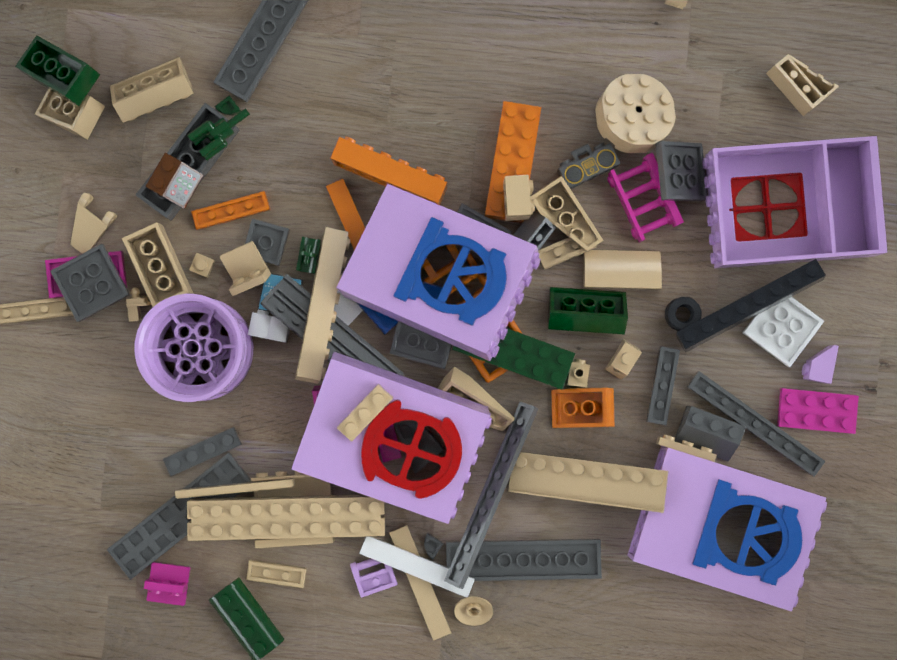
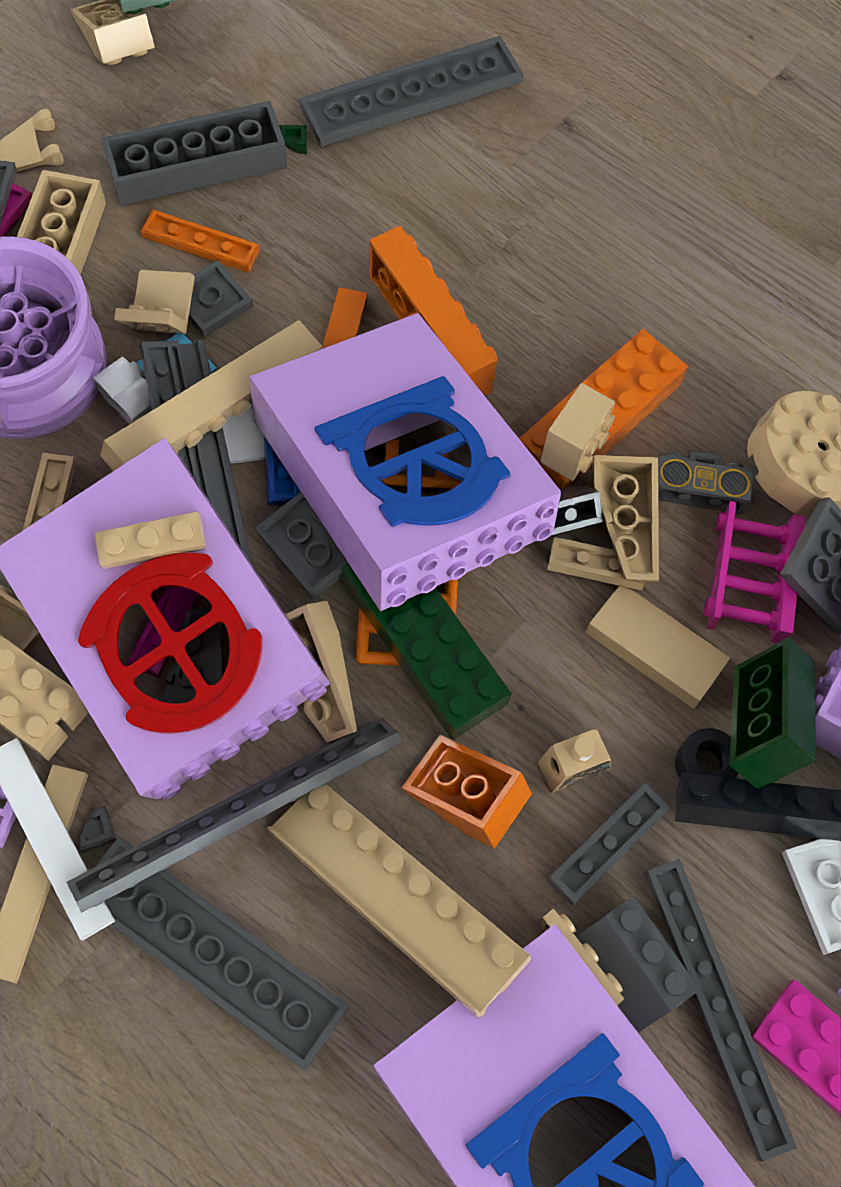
camera: 30 degrees right, 20 degrees down
(151, 90) = (220, 65): tan slope -> none
(174, 180) = (159, 144): slope -> none
(202, 265) = (112, 274): tan plate -> none
(217, 134) = (256, 129): dark green plant -> none
(278, 411) = (50, 486): none -> tan plate
(308, 255) = (247, 338): dark green hips -> none
(473, 611) = (73, 971): tan dish -> none
(573, 379) = (489, 745): tan brick -> none
(587, 310) = (568, 662): dark green slope -> none
(701, 276) = (773, 714): none -> dark green brick

